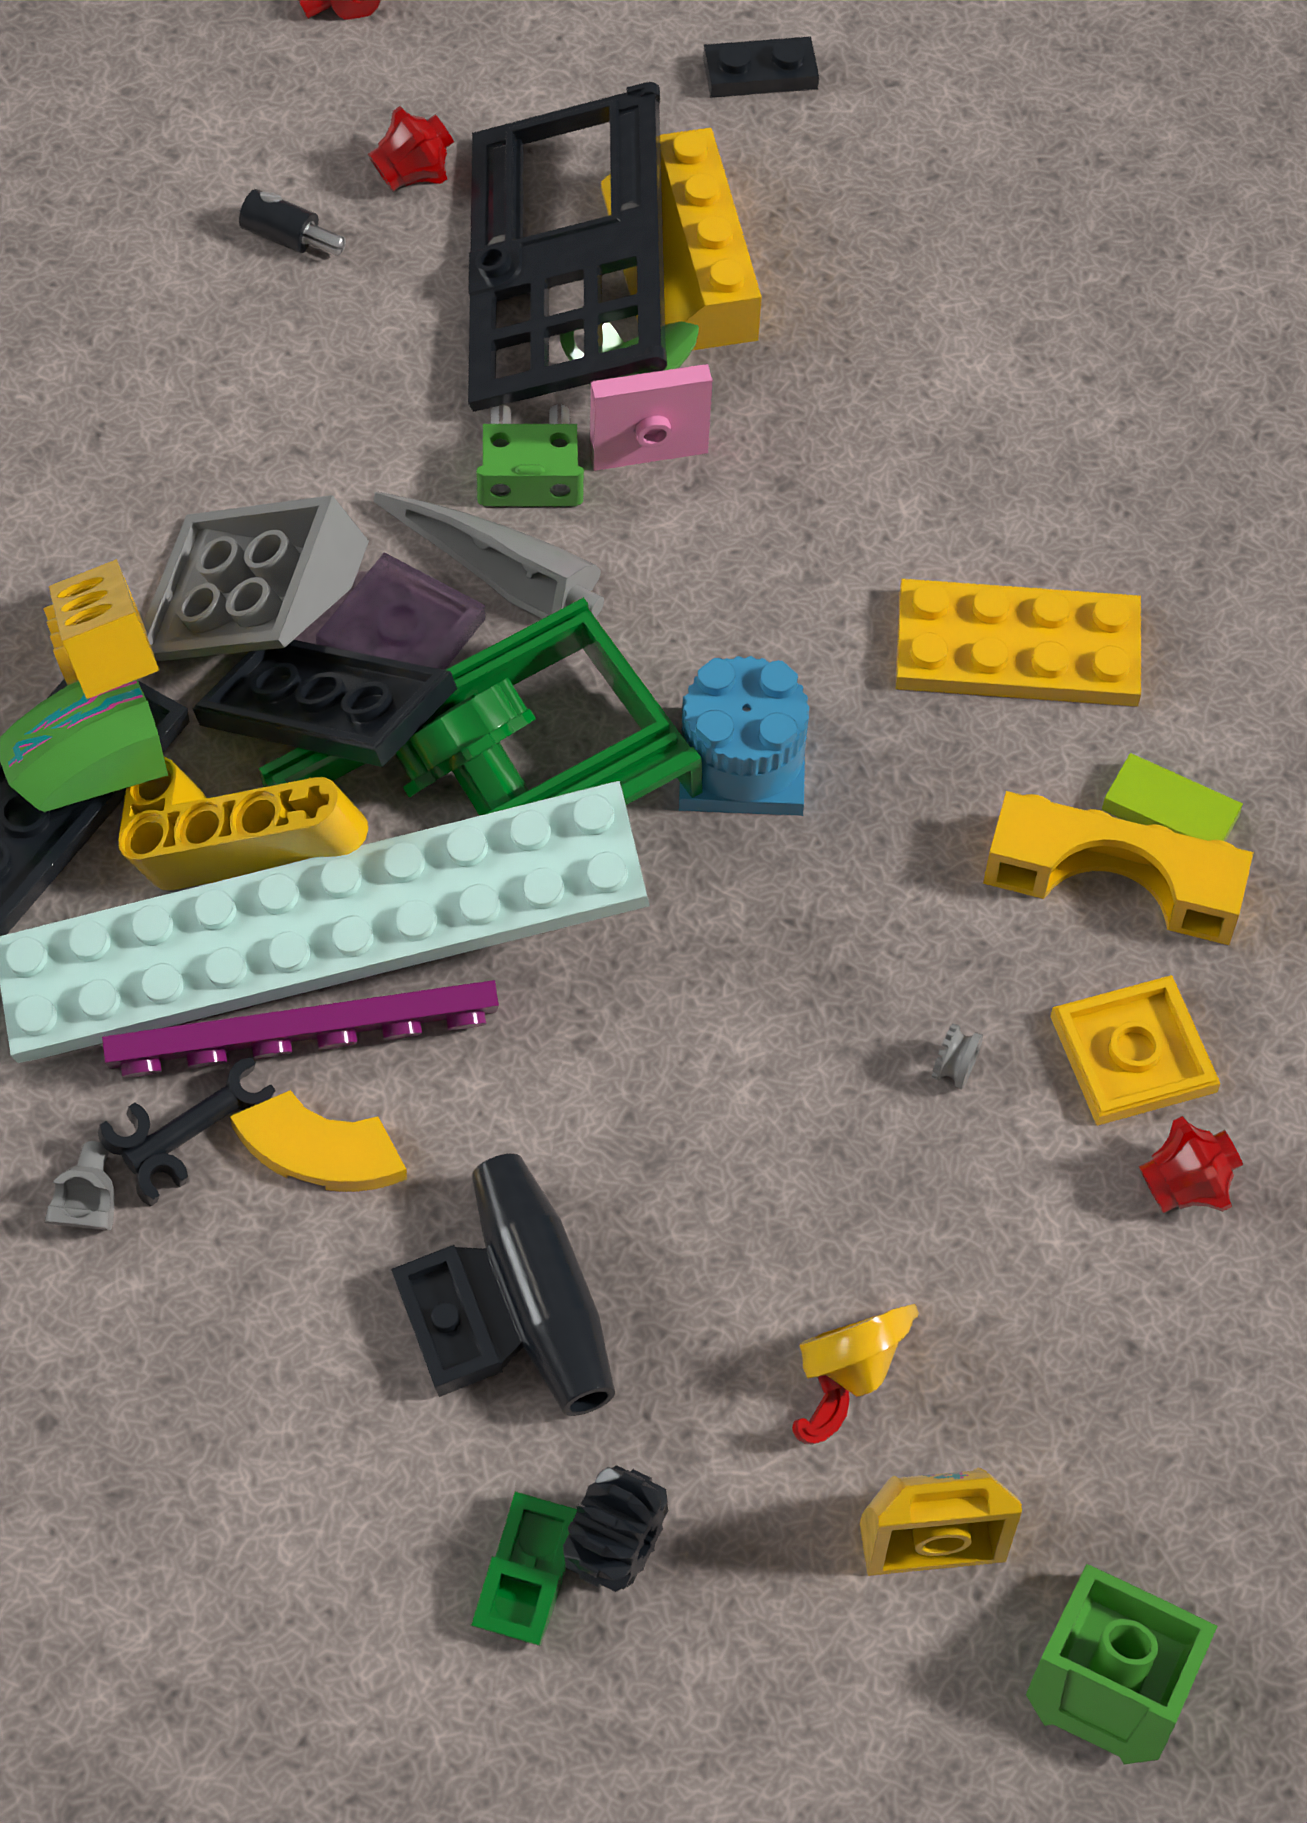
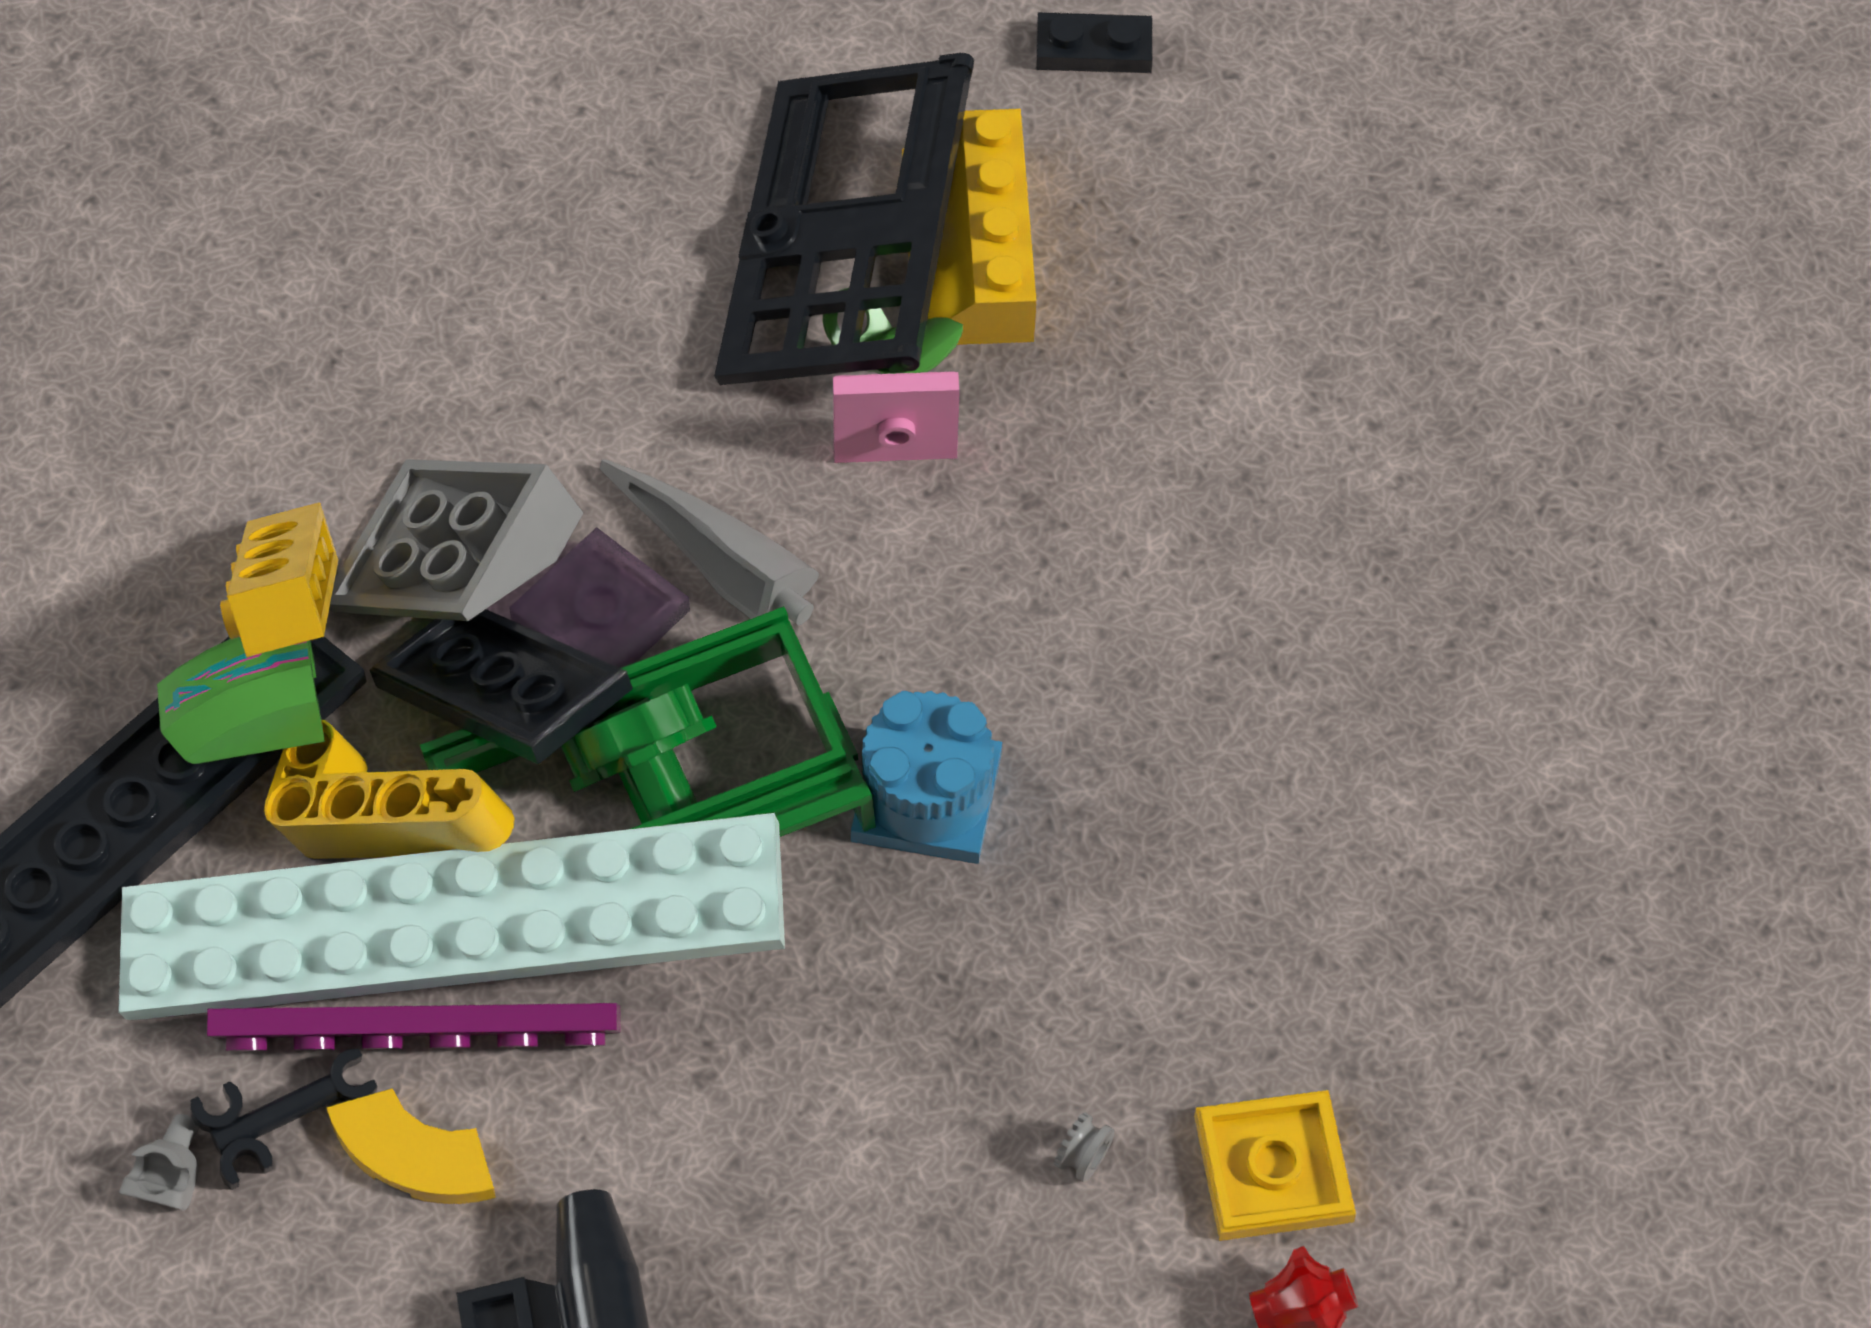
camera: 10 degrees right, 0 degrees up
(286, 223) = (566, 158): black piece -> none
(412, 150) = (709, 95): red rock -> none
(530, 462) = (766, 446): bright green piece -> none
(1019, 642) = (1241, 706): yellow plate -> none
(1158, 796) = (1367, 906): lime tile -> none
(1191, 878) = (1222, 930): yellow arch -> none

